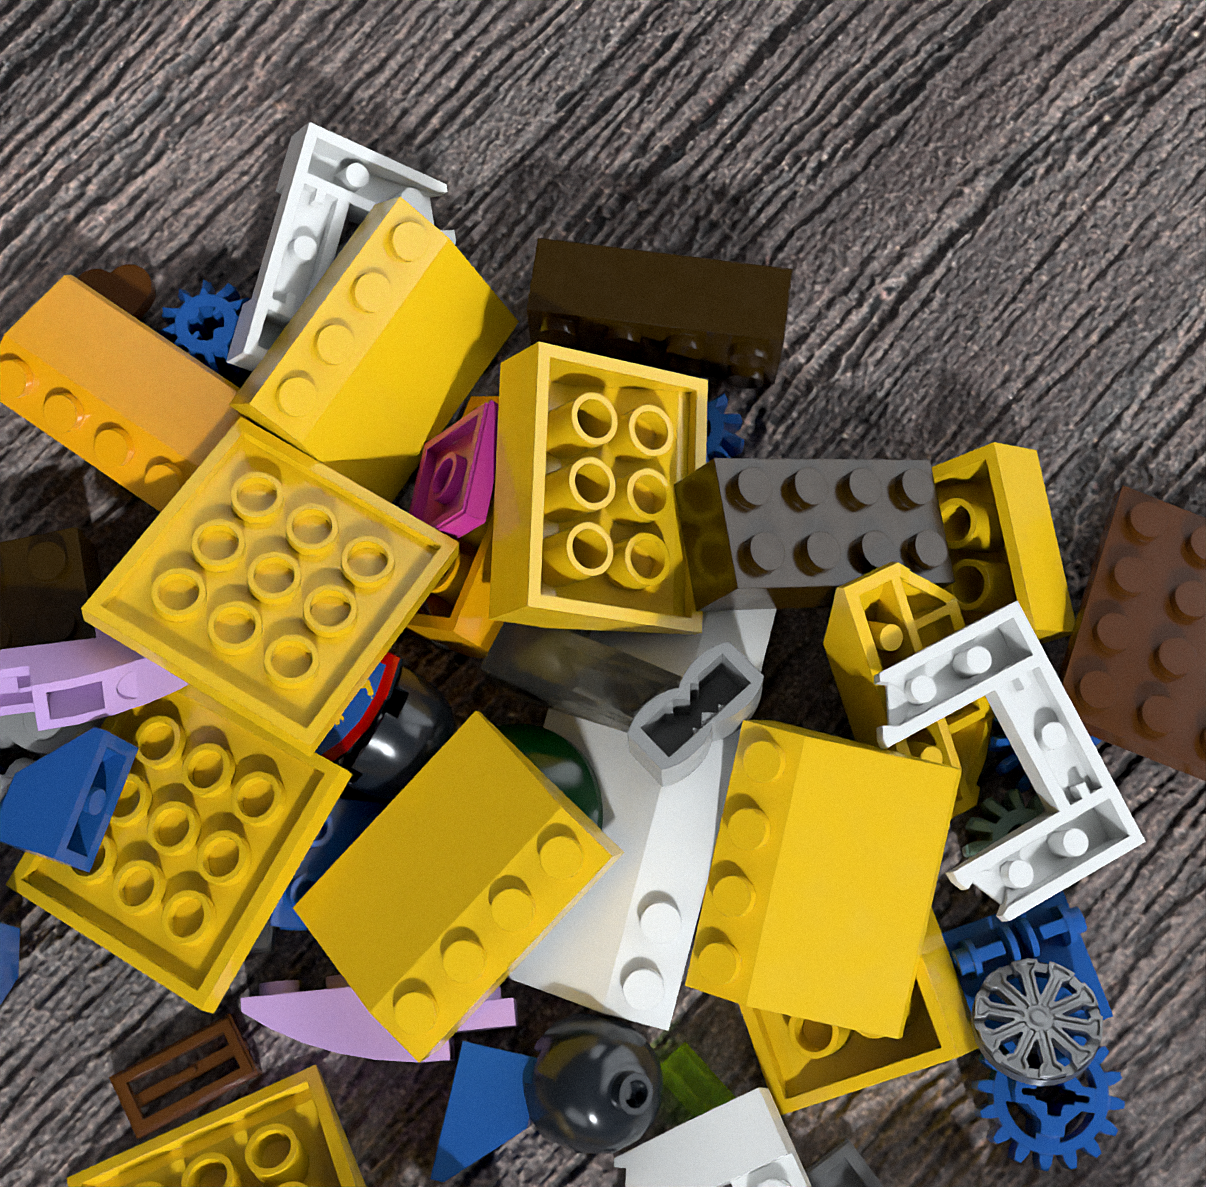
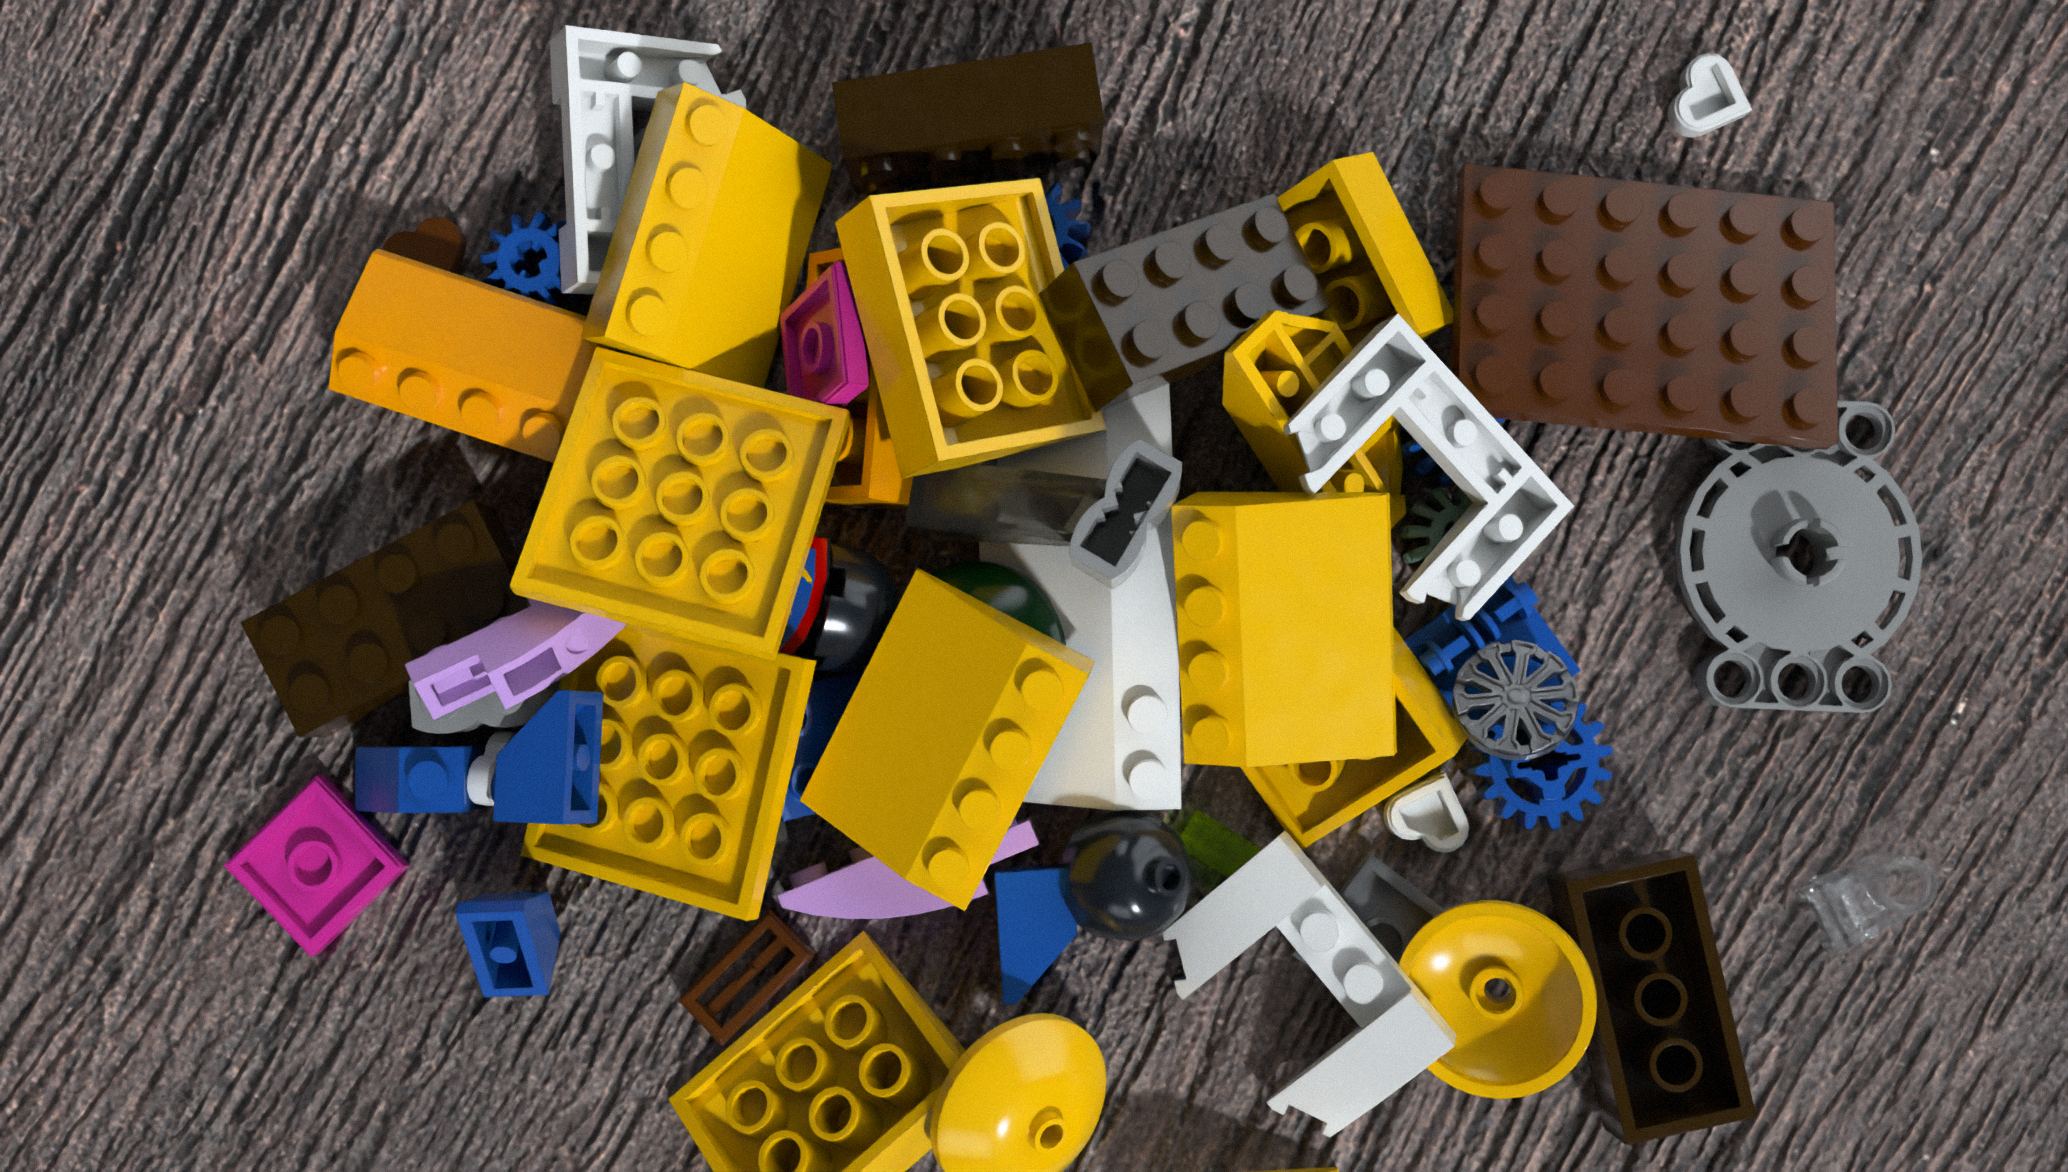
camera: 15 degrees left, 10 degrees up
(920, 1117) = (1428, 813): none -> white tile

